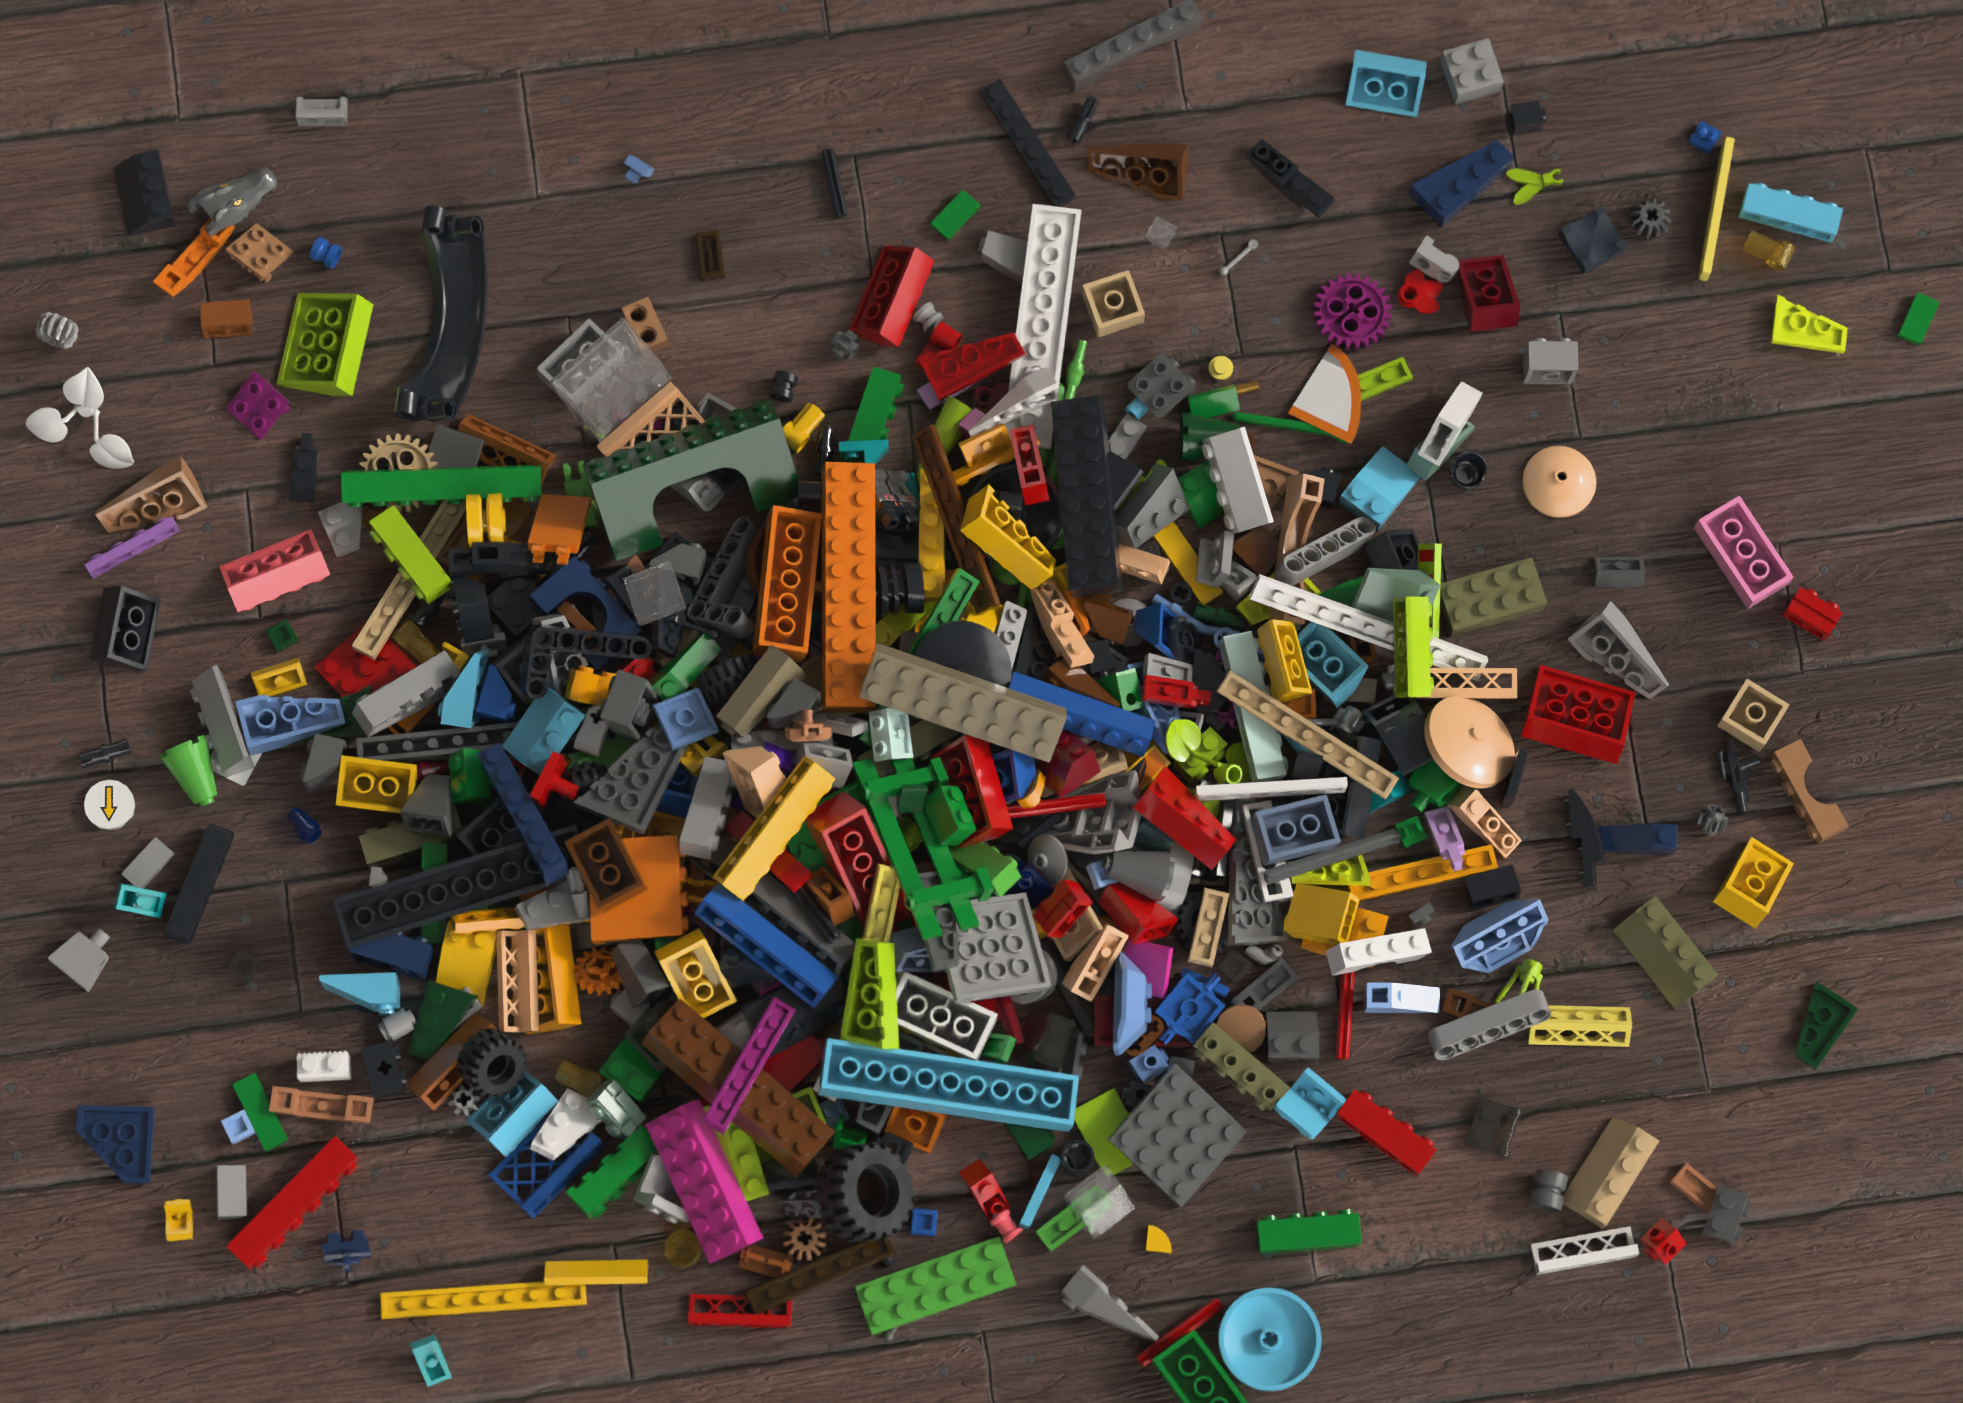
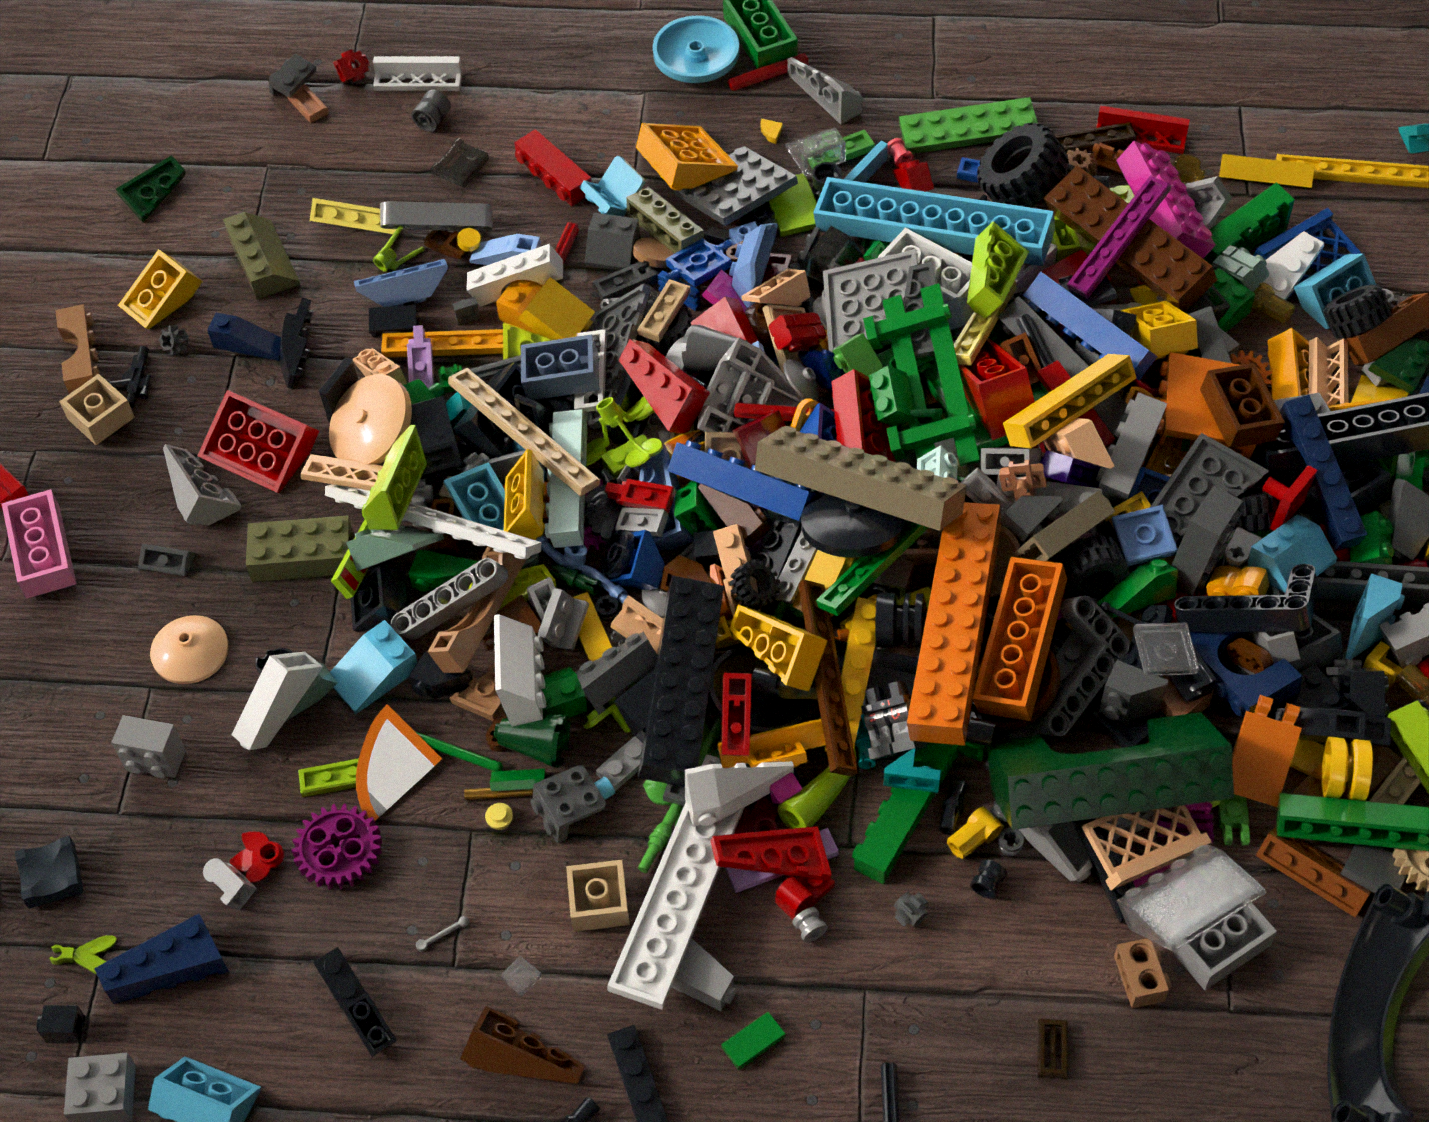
camera: 160 degrees left, 20 degrees down
(496, 700) = (1338, 603): blue slope -> none
(891, 295) = (848, 956): red slope -> none
(1050, 610) = (764, 577): none -> black tyre
(1241, 1167) = (683, 154): none -> light orange slope
(1271, 789) = (571, 394): white tile -> none
(1308, 1233) = (630, 111): green brick -> none
(1445, 1005) = (469, 239): none -> yellow tile
(1488, 293) = (183, 840): dark red slope -> none
(1609, 1171) = (372, 117): tan slope -> none

